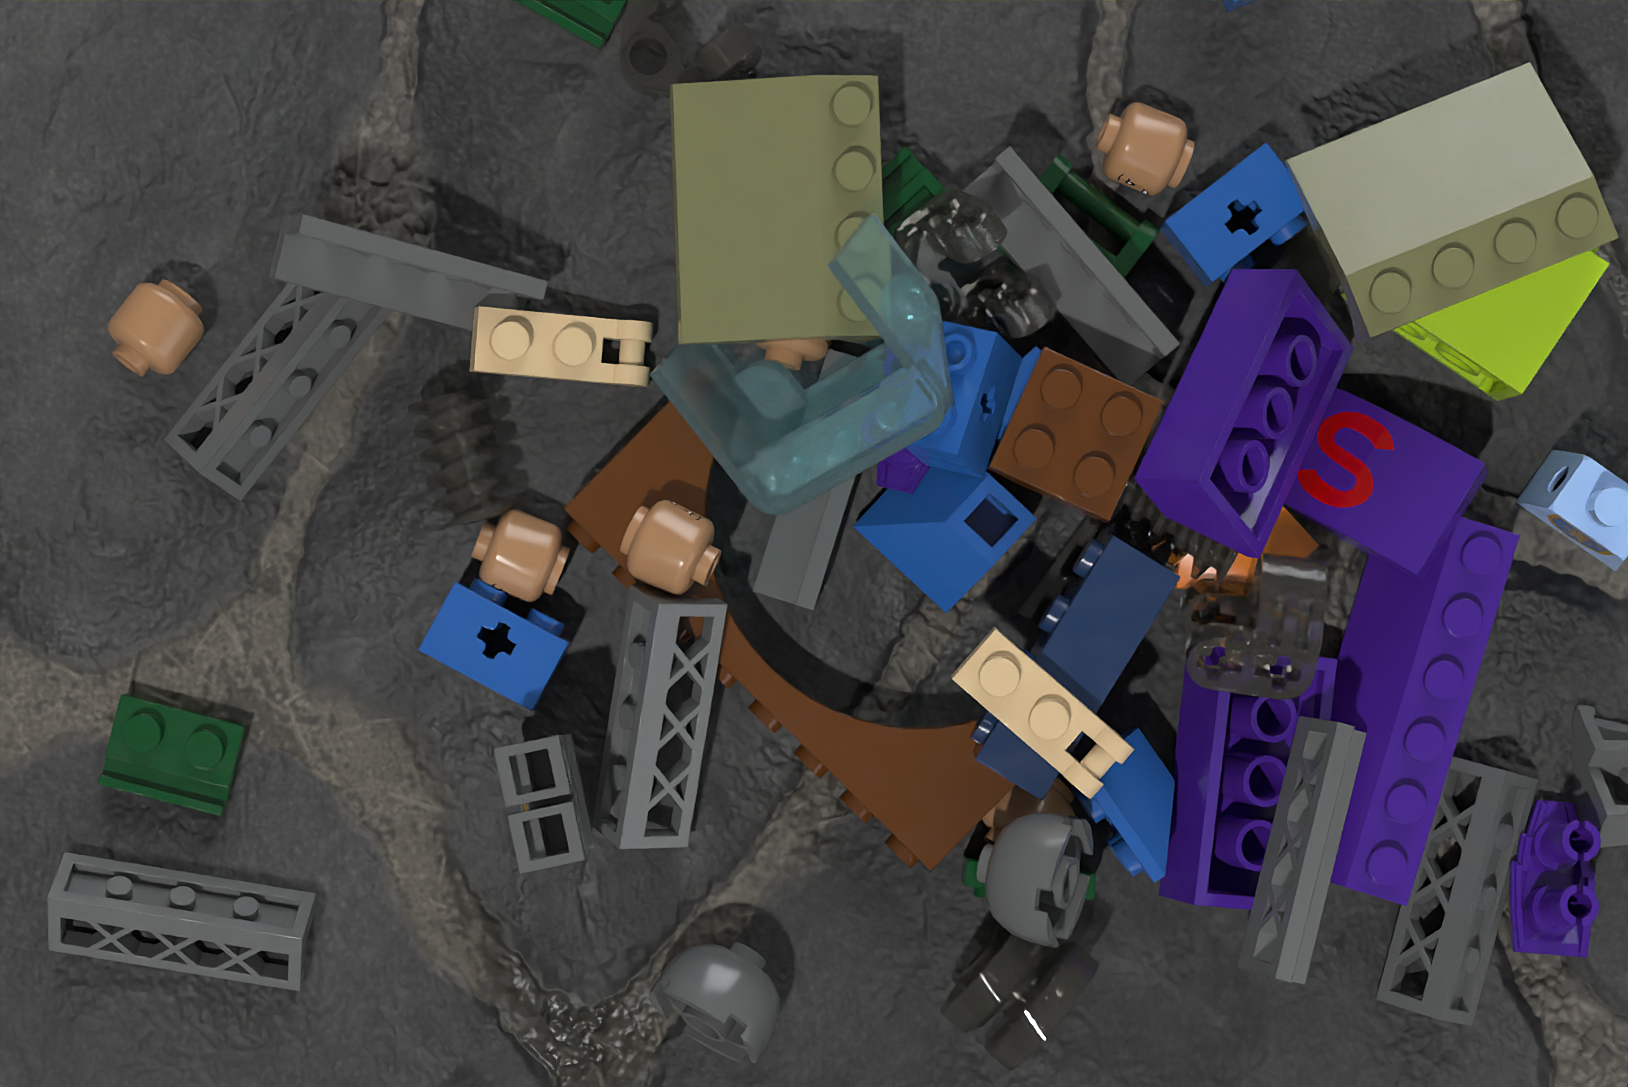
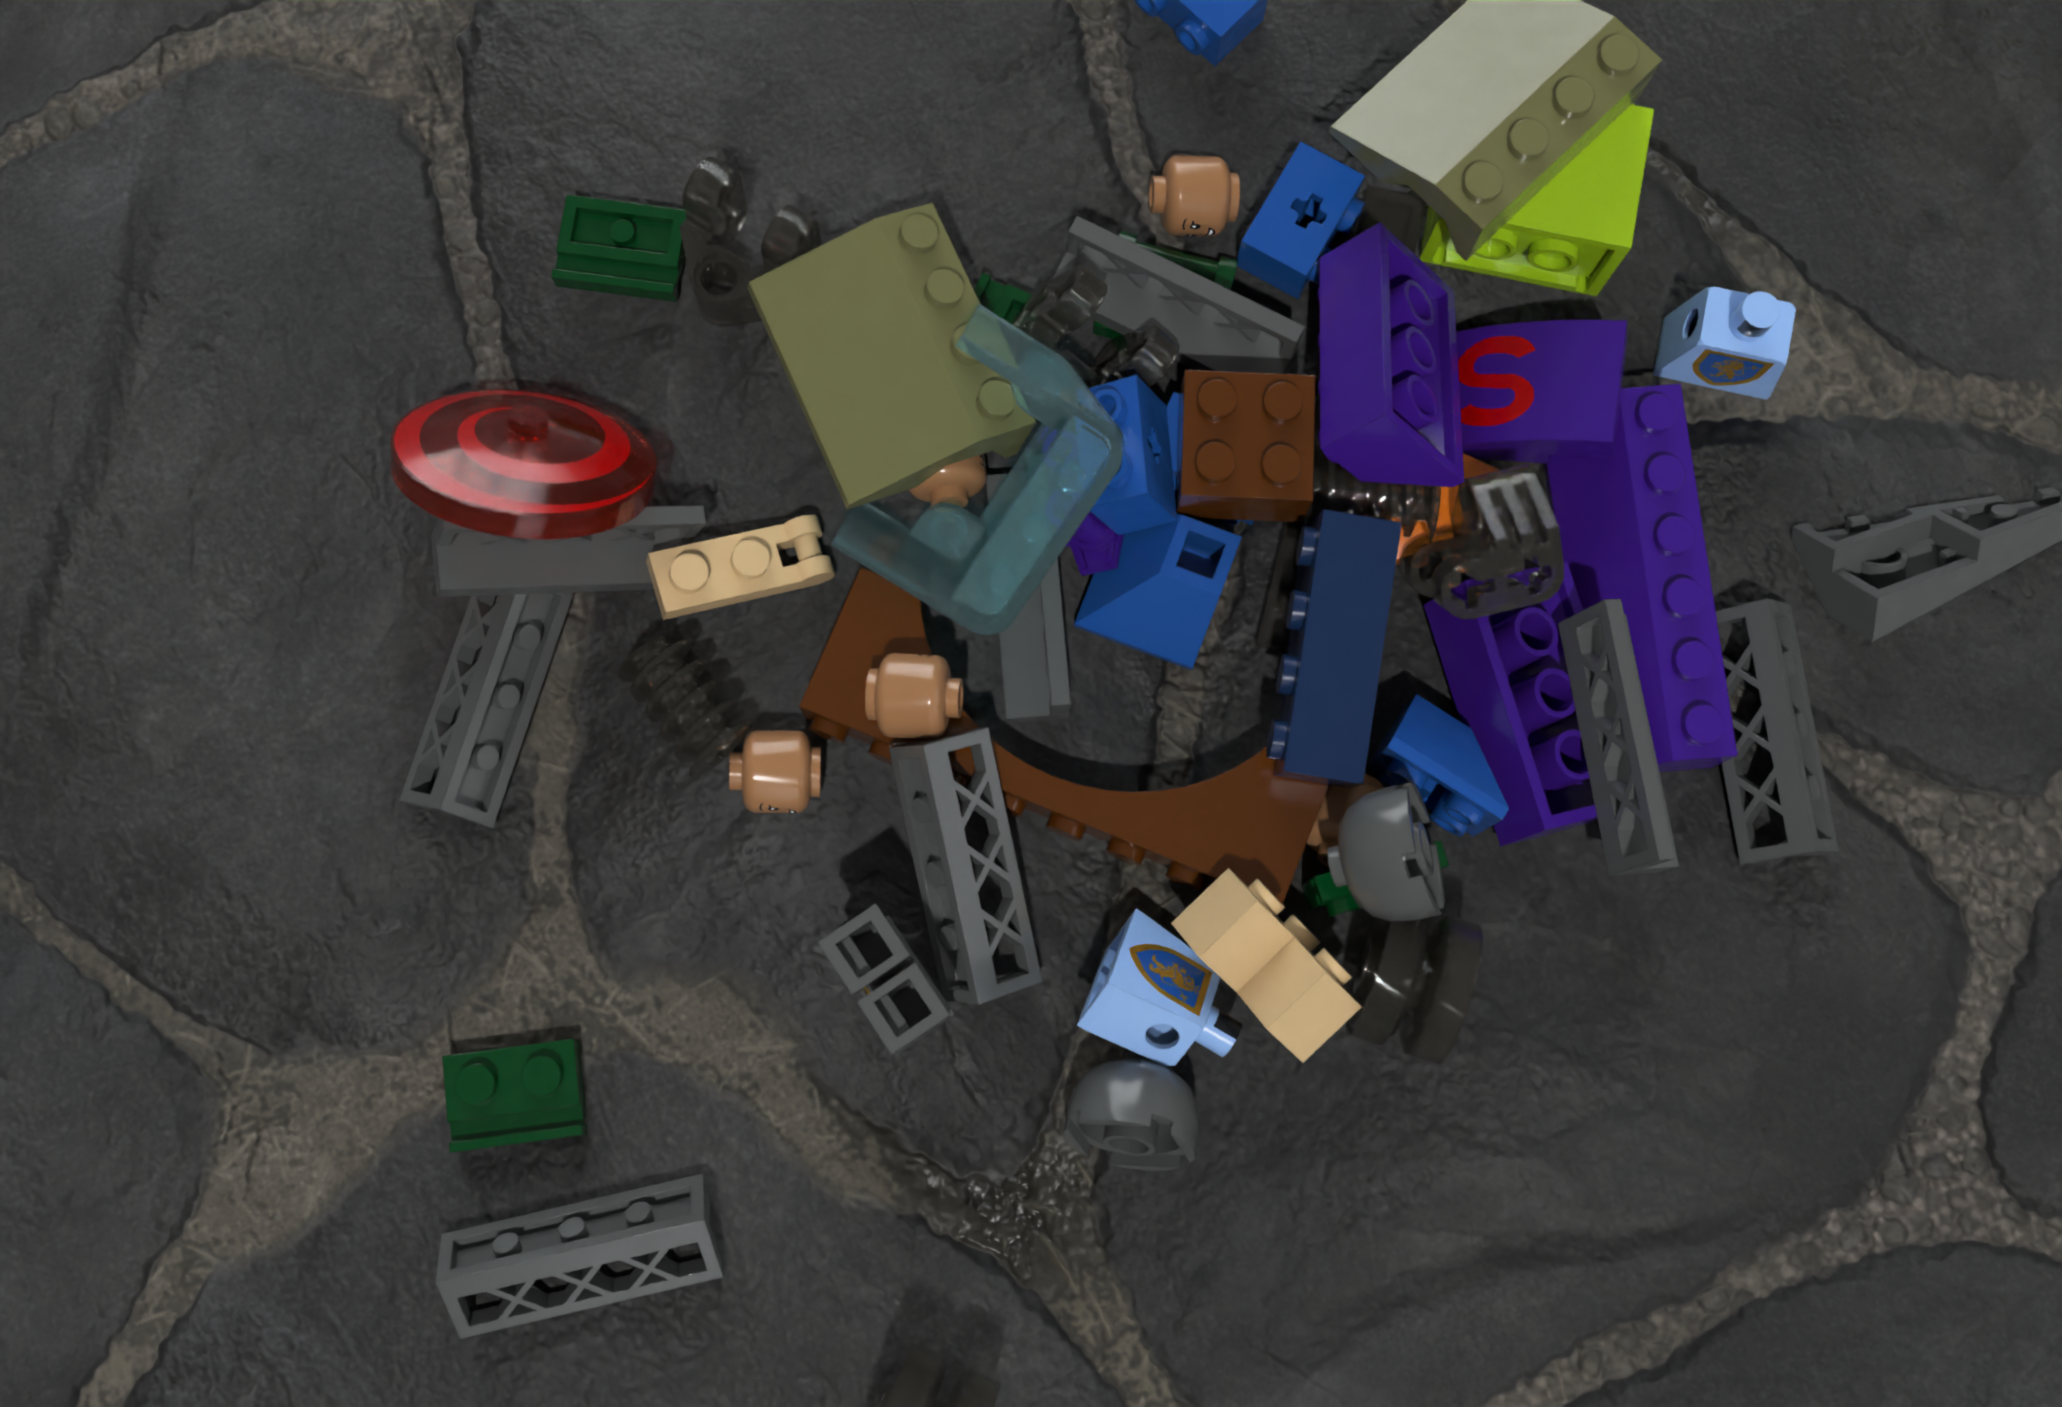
camera: 20 degrees left, 10 degrees down
(156, 328) = (353, 697): medium nougat head -> none
(395, 179) = (522, 464): none -> clear red dish
(458, 643) = (749, 874): blue brick -> none
(782, 904) = (1156, 996): none -> light blue torso
(894, 920) = (1269, 962): none -> tan brick
(1040, 711) = (1327, 697): tan plate -> none
(1553, 883) = (1849, 692): dark purple connector -> none

